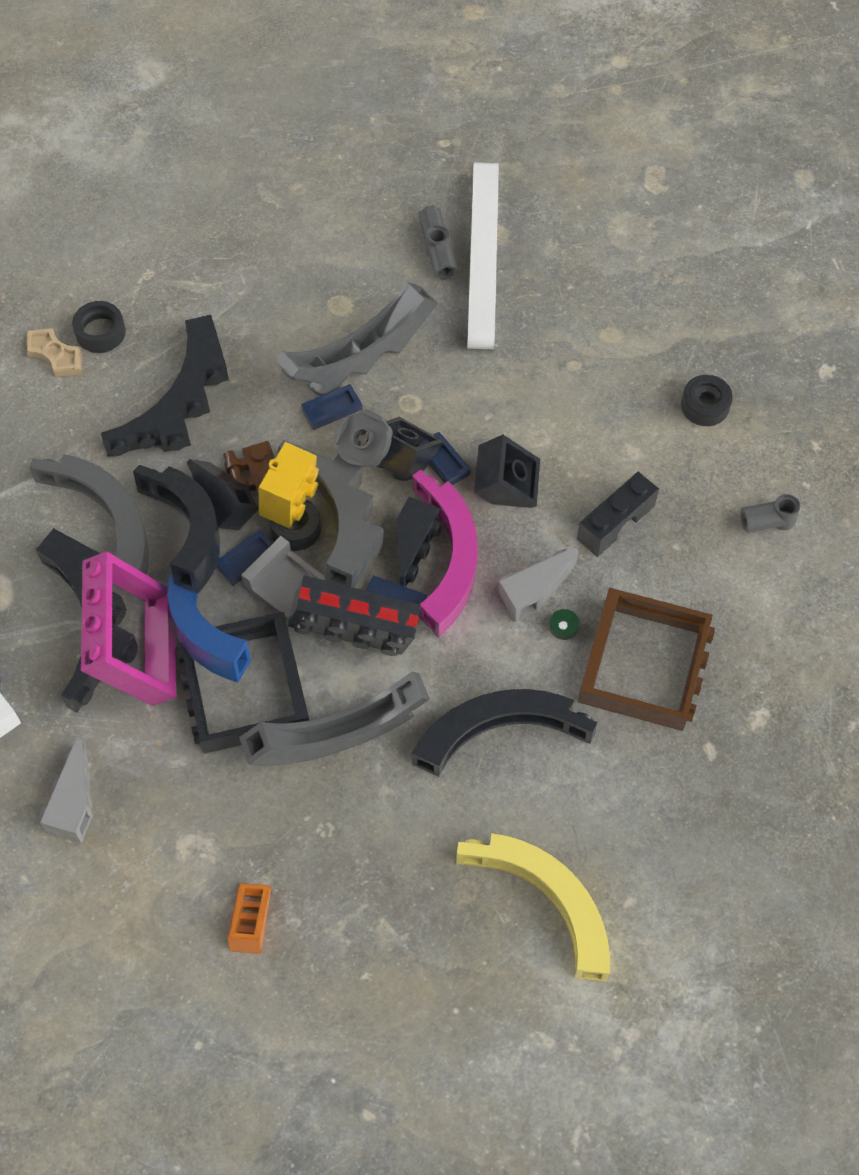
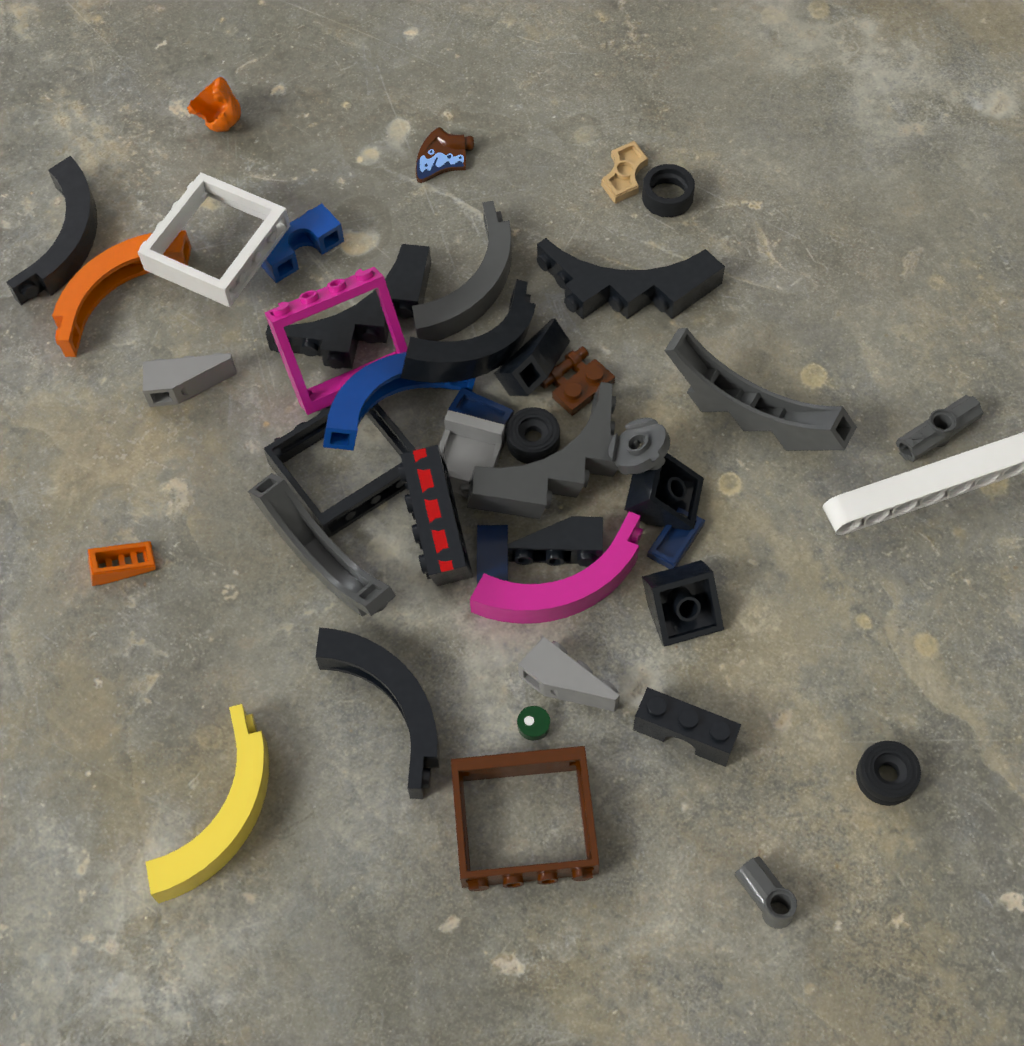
camera: 70 degrees right, 0 degrees up
(288, 485) = (549, 401): yellow brick -> none
(331, 407) = (685, 415): dark blue tile -> none

